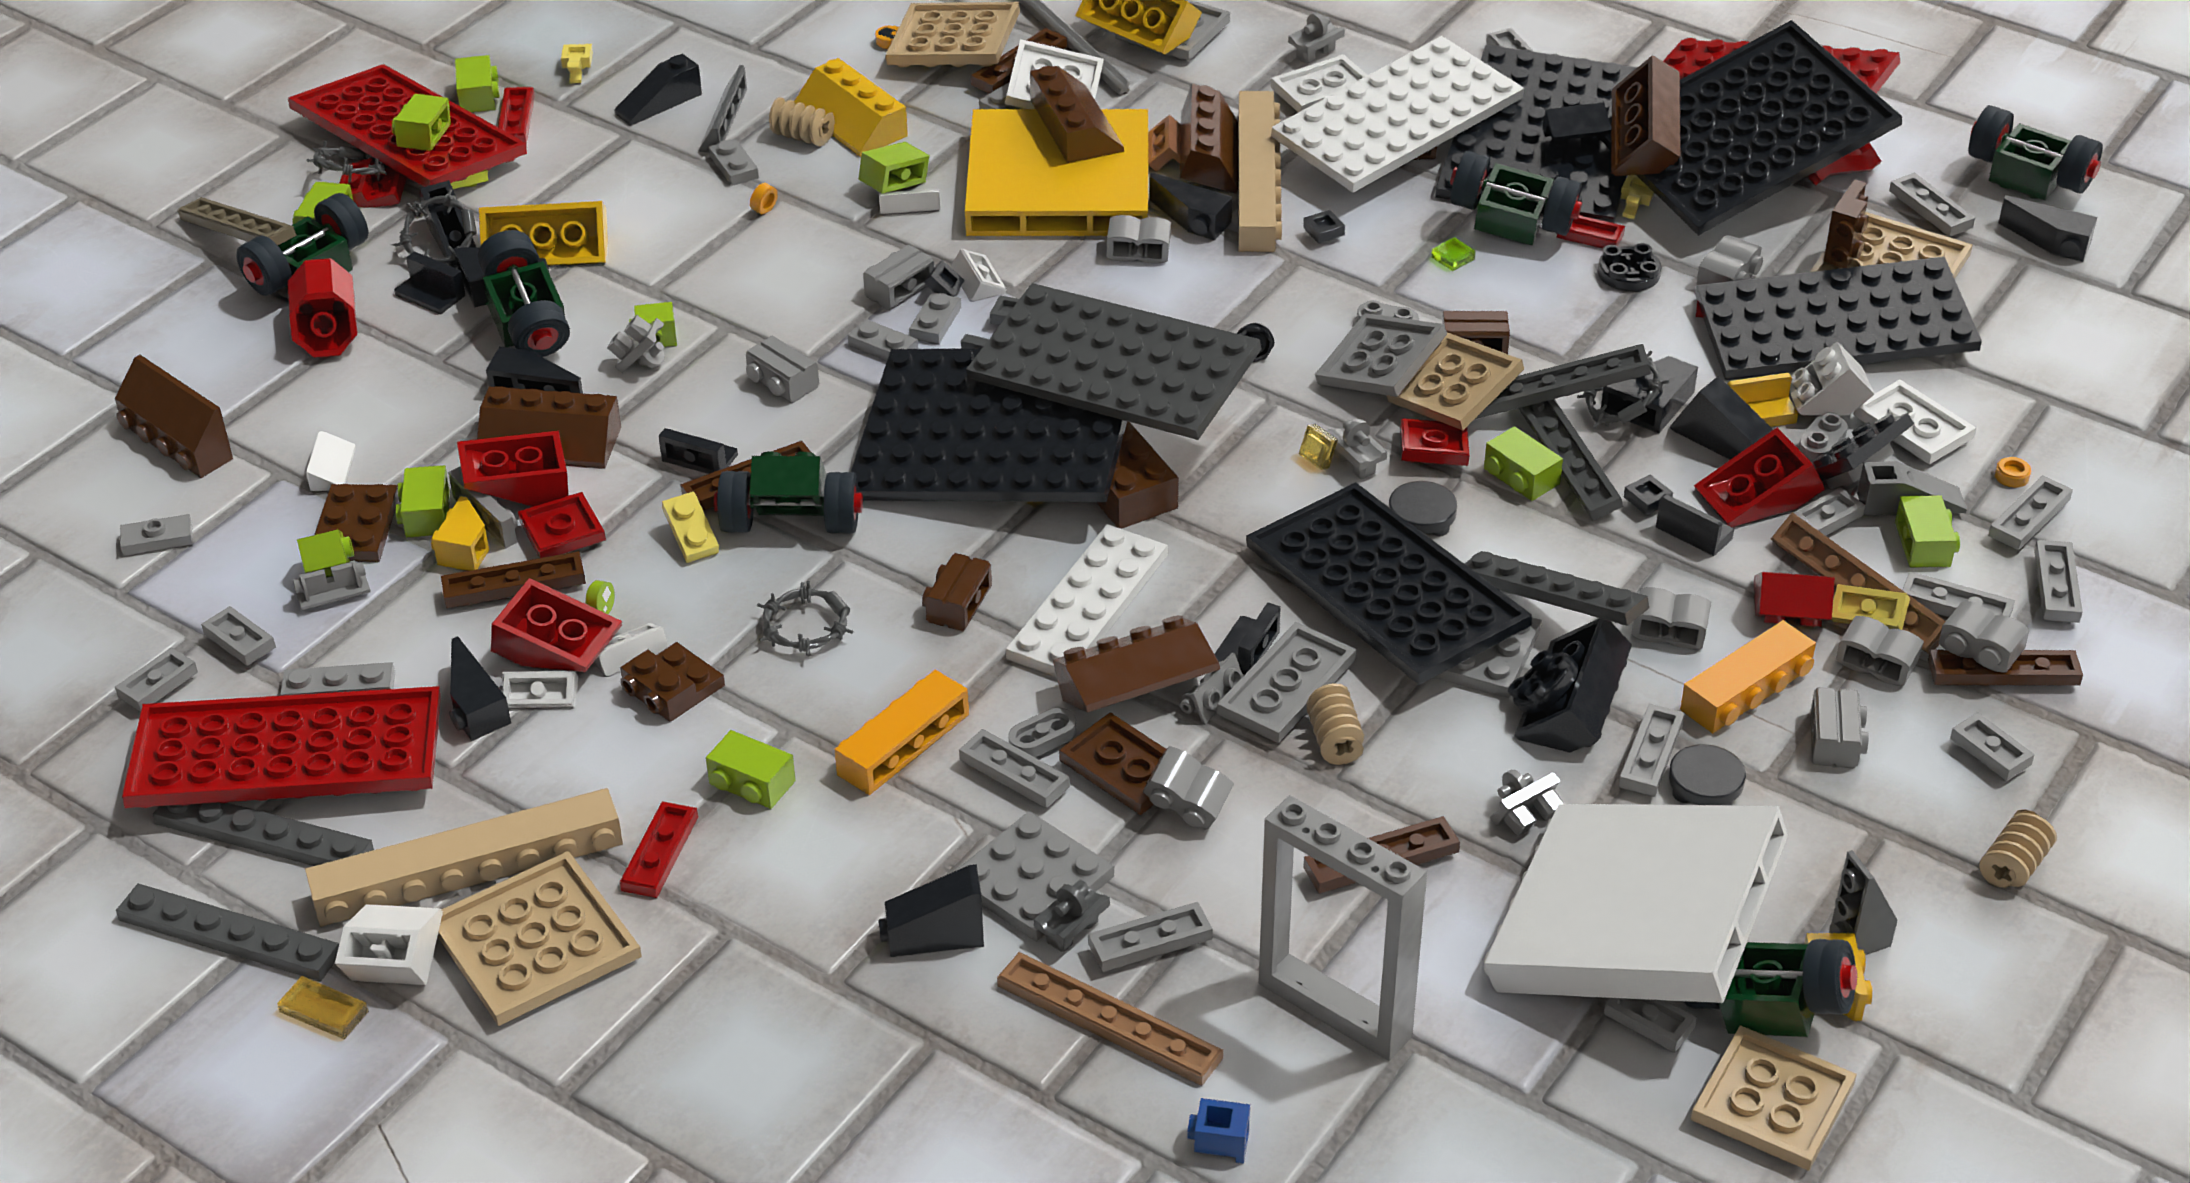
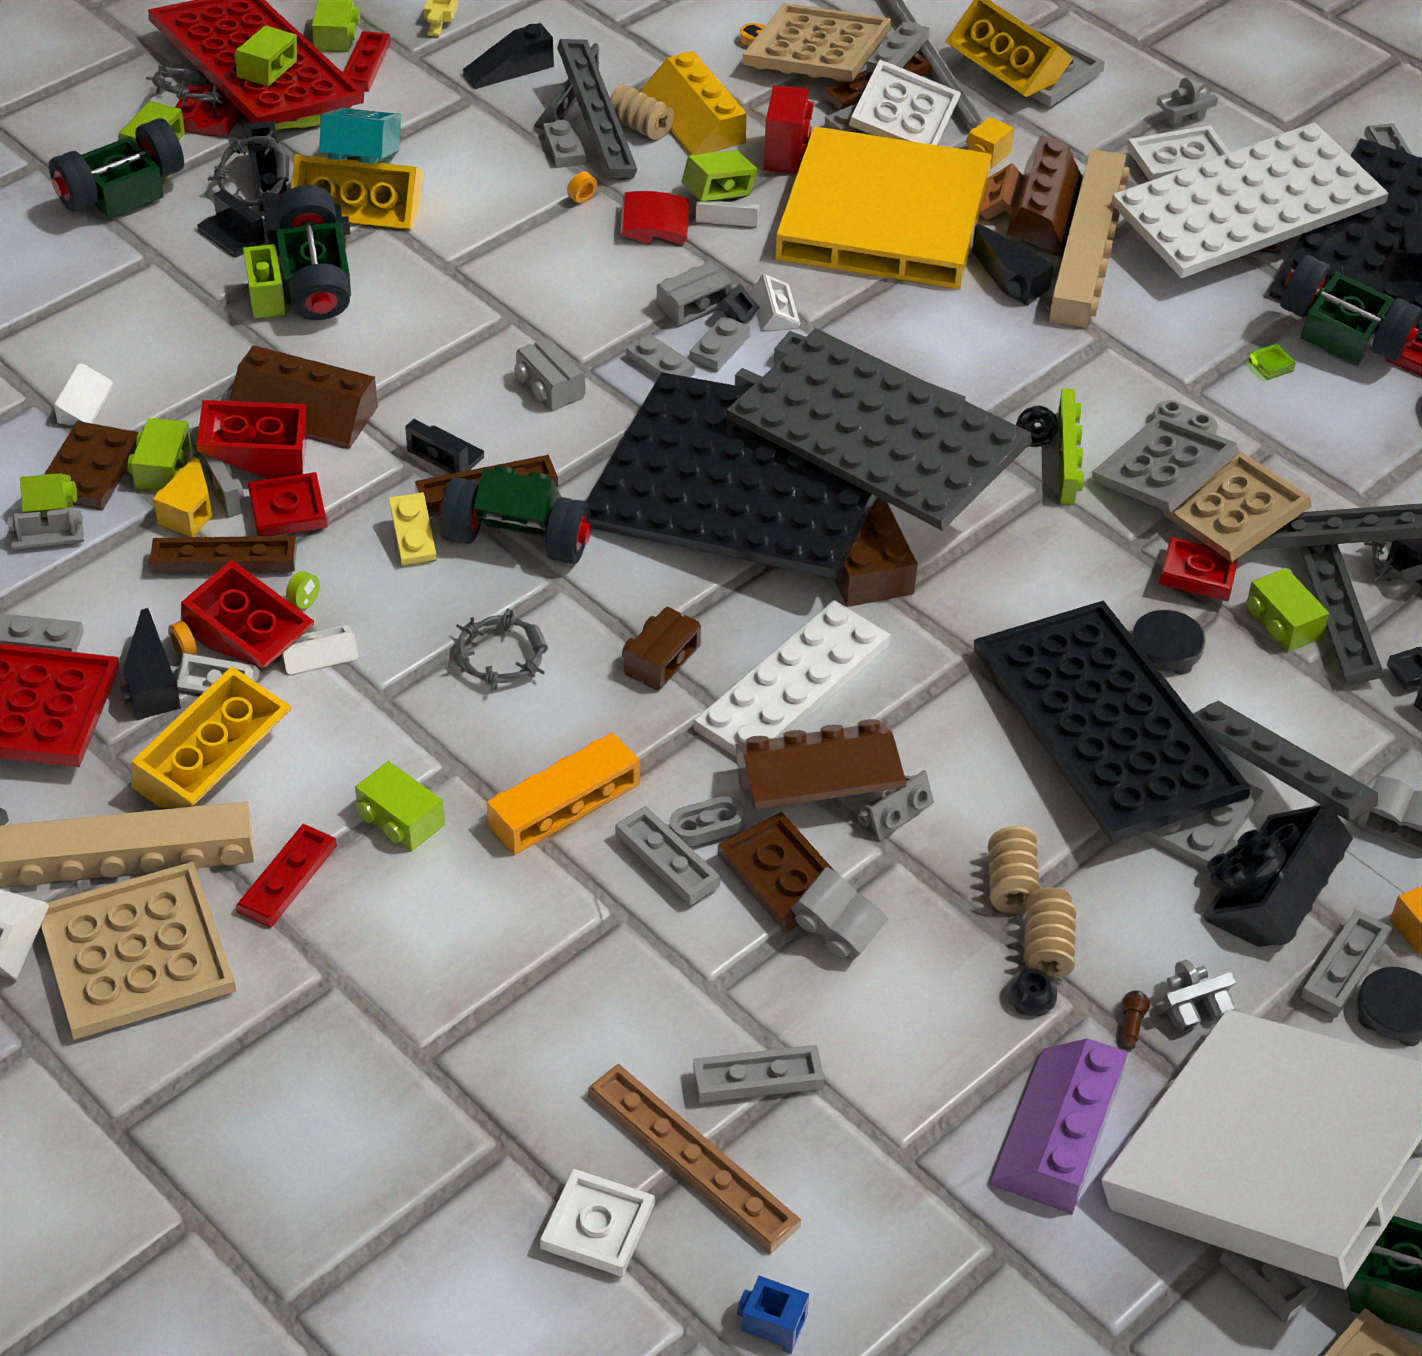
camera: 10 degrees right, 5 degrees up
(234, 221) = (61, 130): dark tan tile -> none
(322, 307) = (118, 233): red brick -> none
(478, 327) = (264, 281): none -> lime brick
(496, 660) = (182, 638): none -> light orange tile
(529, 371) = (299, 335): black slope -> none
(537, 179) = (359, 133): none -> teal brick
(550, 743) = (206, 741): none -> yellow slope
(641, 347) = (413, 322): light grey hips -> none
(664, 313) = (436, 305): lime brick -> none
(670, 680) = (348, 692): reddish brown plate -> none
(759, 124) = (597, 108): none -> dark grey plate
(841, 212) = (656, 215): none -> red slope
(935, 916) = (540, 1008): black slope -> none
(949, 116) = (787, 129): none -> red brick
(1028, 866) = (656, 979): light grey plate -> none
(1034, 25) = (900, 45): none -> light grey plate
(1038, 1086) = (597, 1222): none -> white plate
(1071, 115) = (911, 149): reddish brown slope -> none
(1073, 911) = (681, 1032): dark grey hips -> none
(1138, 239) = (947, 292): light grey brick -> none
(1143, 94) = (993, 138): none -> yellow brick
(1251, 637) = (949, 756): black panel -> none
(1276, 689) = (962, 816): light grey plate -> none
(1286, 352) = (1069, 455): none -> lime plate
(1318, 446) = (1075, 553): clear yellow tile -> none
(1324, 226) = (1143, 309): black plate -> none
(1358, 447) = (1115, 560): light grey hips -> none
(1377, 820) = (1029, 1002): none -> black plate
(1383, 770) = (1050, 932): none -> tan piece
(1402, 883) = (971, 1223): light grey window -> none
(1414, 843) = (1024, 1027): reddish brown plate -> none
(1447, 923) = (1060, 1123): none -> medium lavender slope
(1474, 820) = (1135, 1006): none -> reddish brown piece
(1481, 327) = (1278, 451): reddish brown brick -> none

